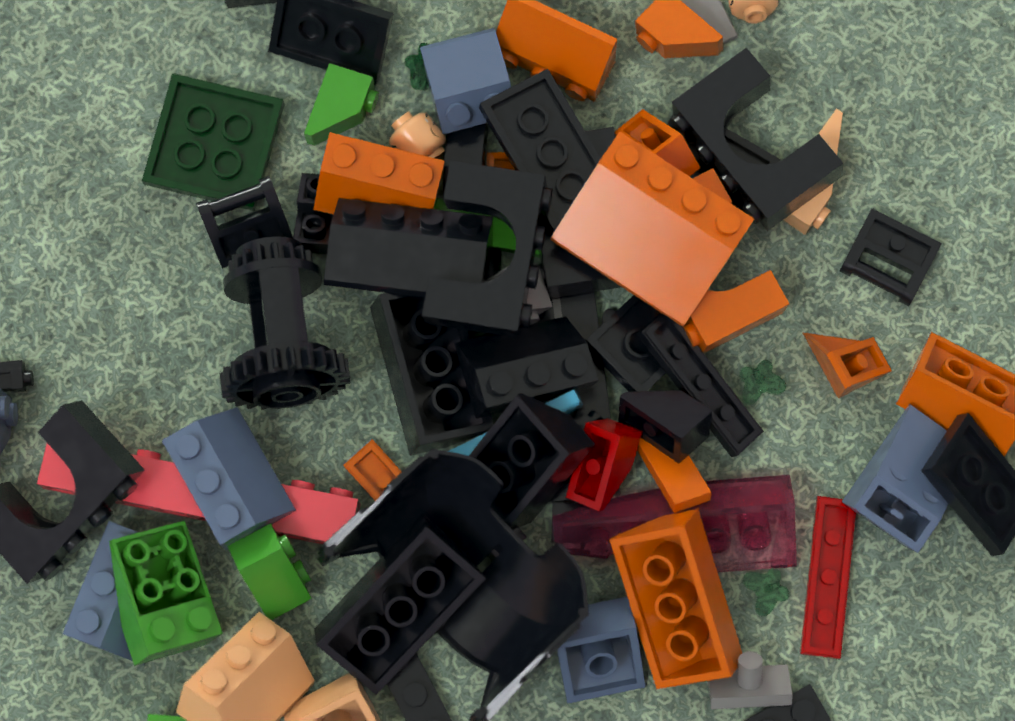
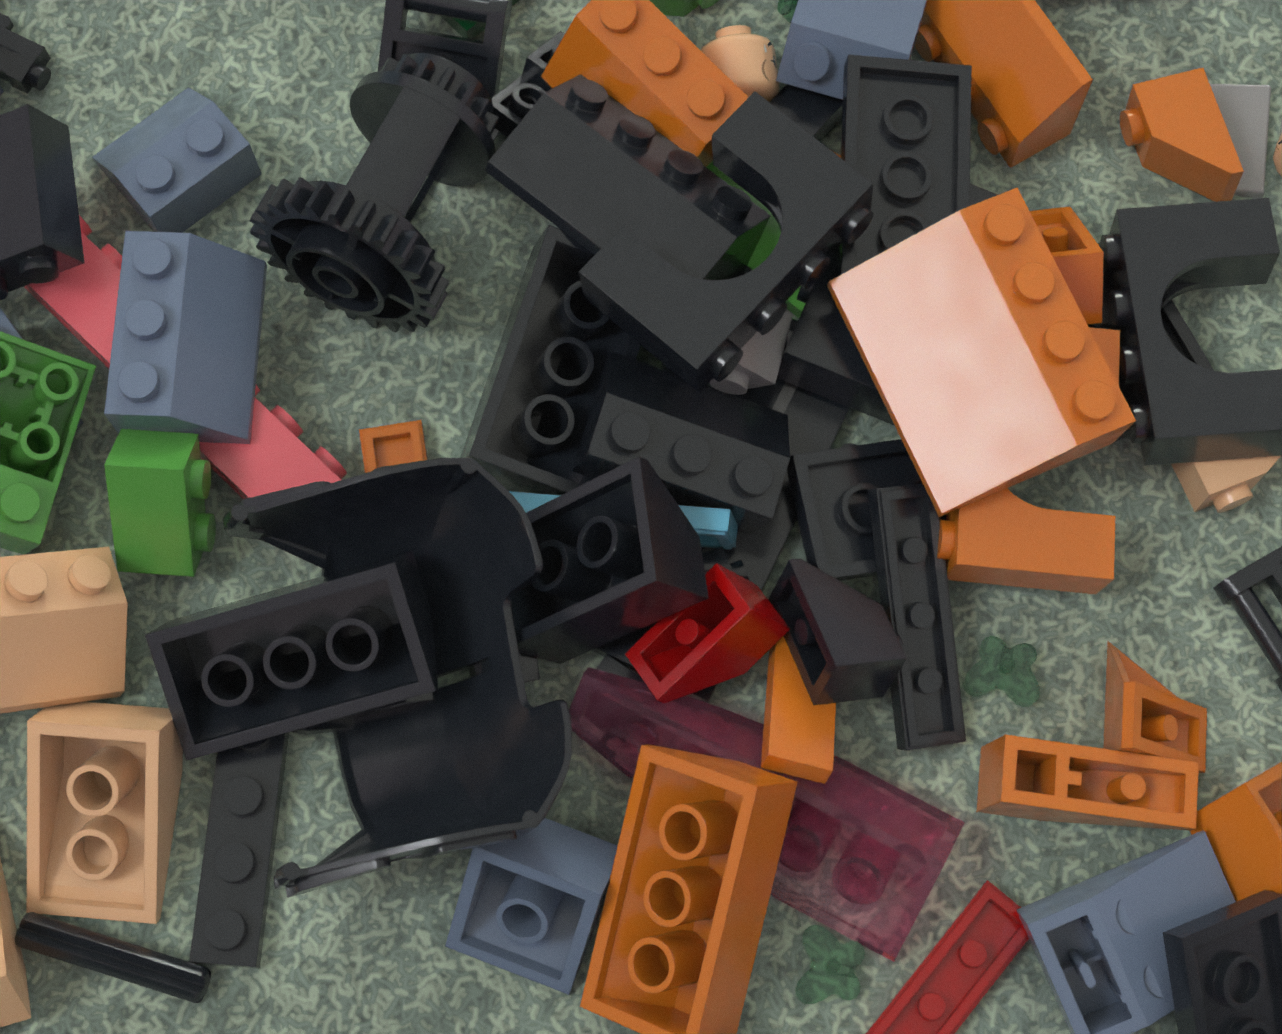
camera: 30 degrees right, 5 degrees down
(141, 378) = (179, 162): none -> sand blue slope
(838, 417) = (1086, 785): none -> orange slope

